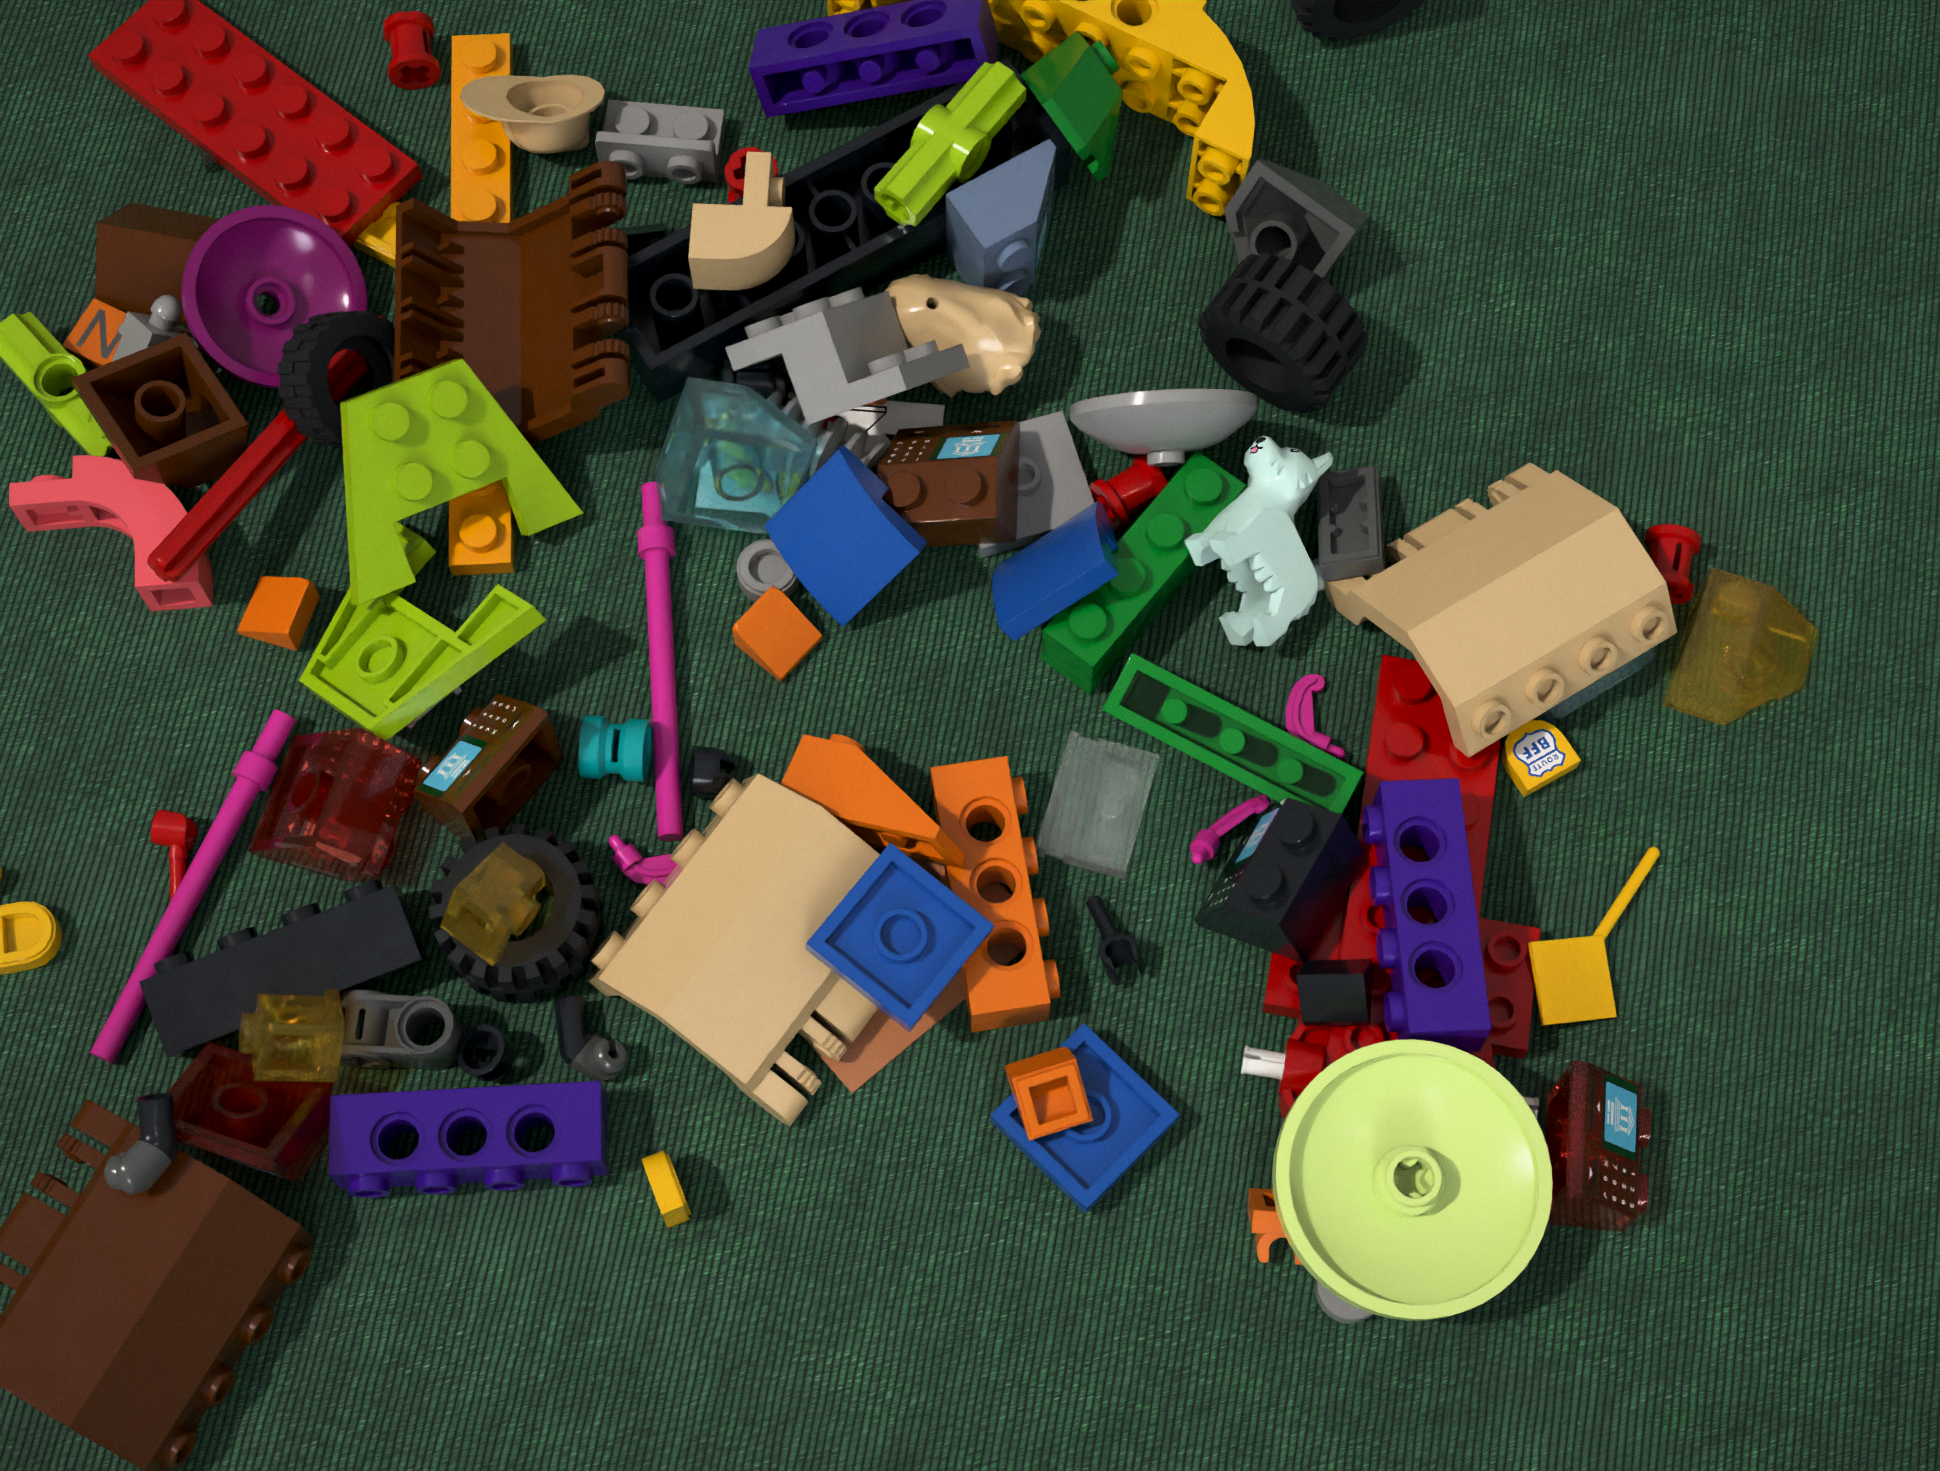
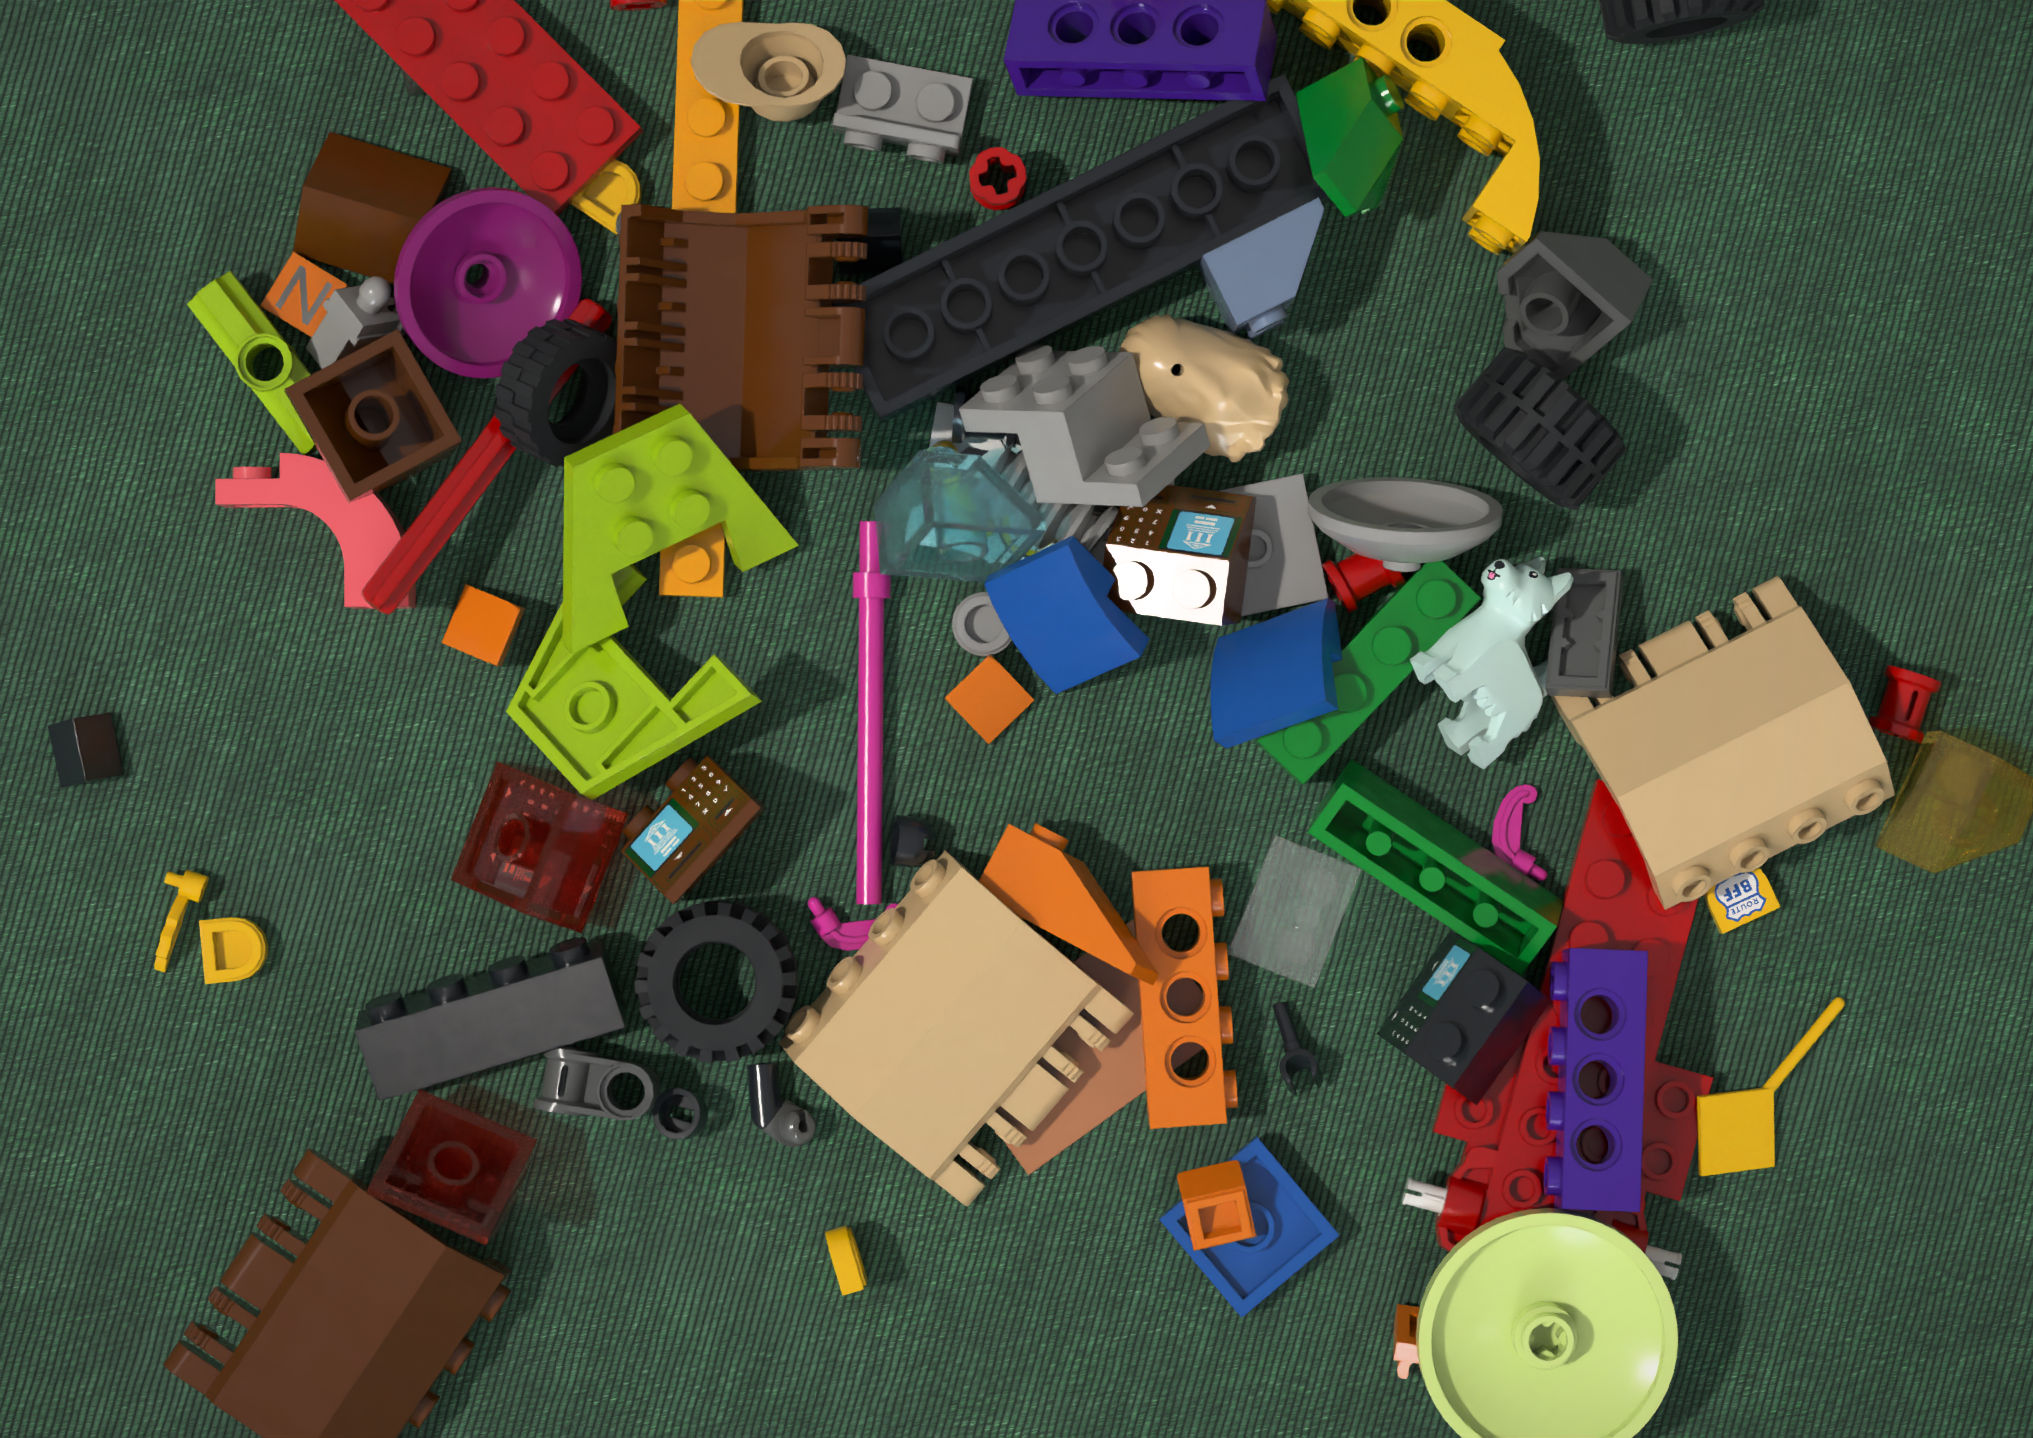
camera: 10 degrees right, 20 degrees up
(153, 1151) = (365, 1237): arm -> none
(179, 834) = (382, 856): red hand -> none
(252, 774) = (458, 802): dark pink bar -> none
(294, 1037) = (503, 1099): clear yellow brick -> none
(368, 1123) = (761, 1179): dark purple brick -> none
(494, 903) = (702, 995): clear yellow brick -> none
(605, 752) = (805, 810): teal wheel -> none
(746, 242) = (991, 294): tan brick -> none
(899, 937) = (1087, 1056): blue plate -> none
(950, 143) = (1213, 189): lime piece -> none
(1208, 841) = (1399, 954): dark pink piece -> none
(1335, 992) = (1501, 1141): black slope -> none
(1594, 1149) = (1728, 1309): clear red slope -> none

